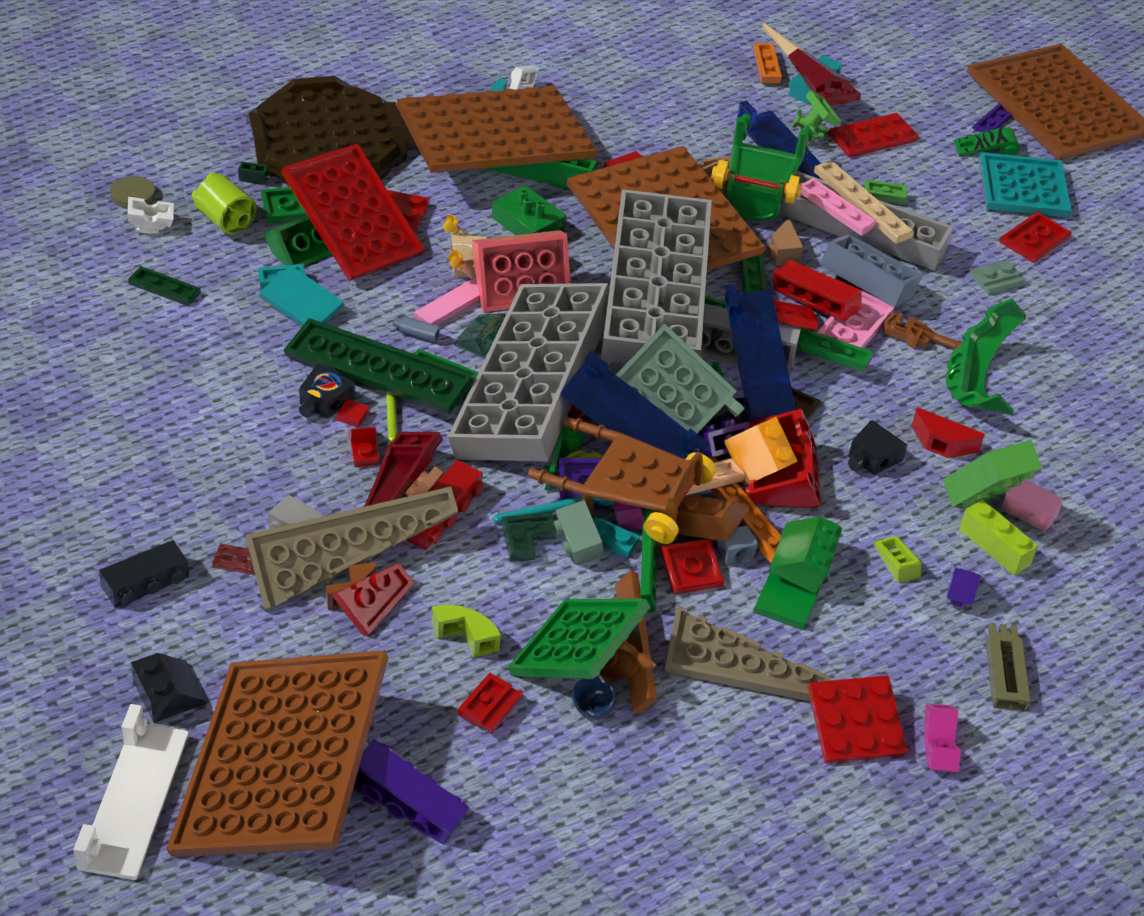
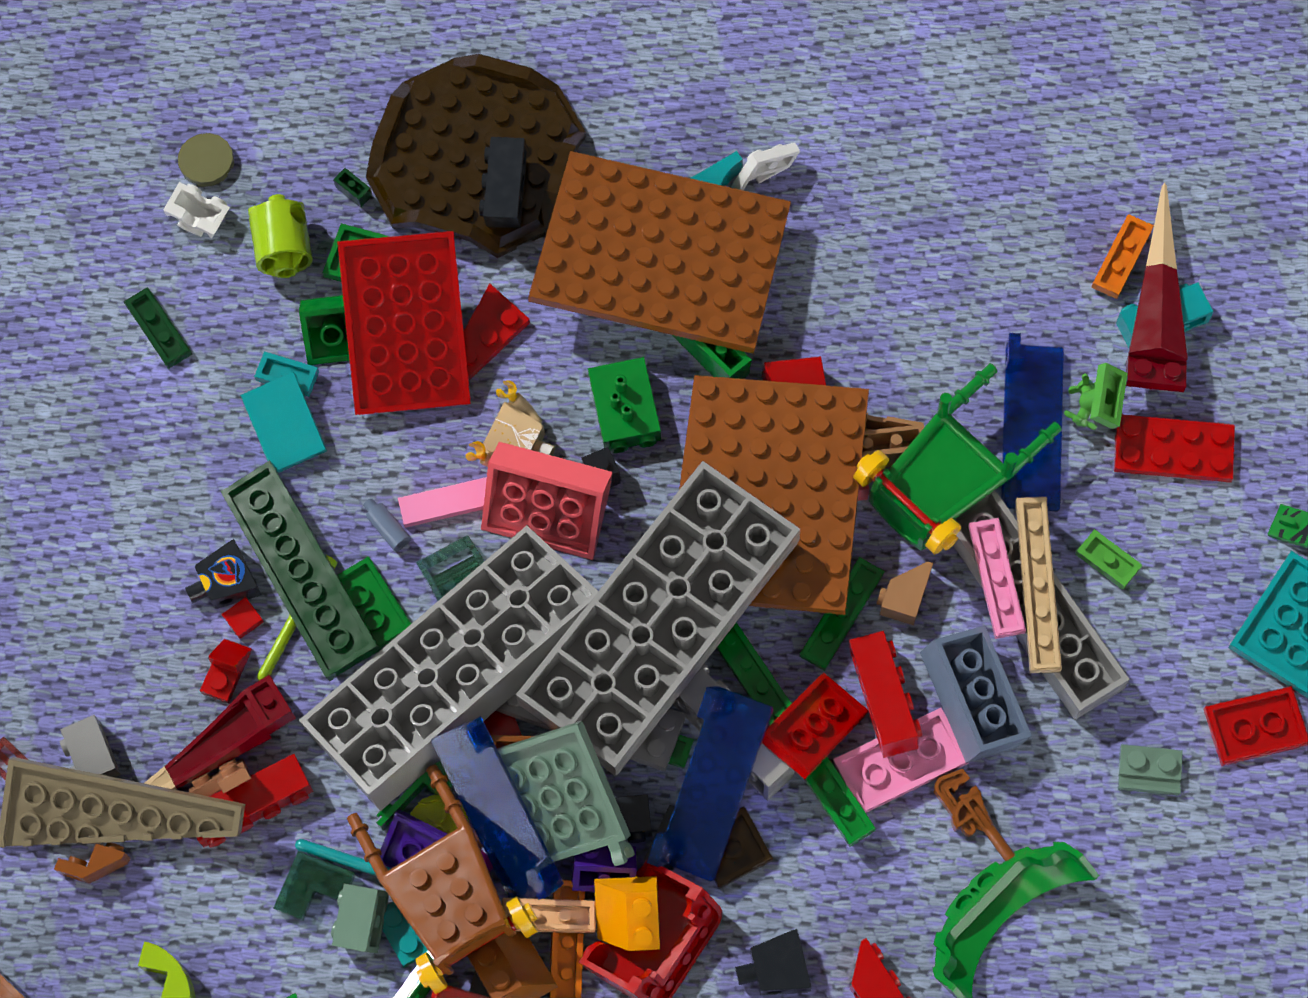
camera: 40 degrees right, 25 degrees up
(365, 125) = (504, 182): none -> black brick
(373, 597) = (102, 892): red wing -> none

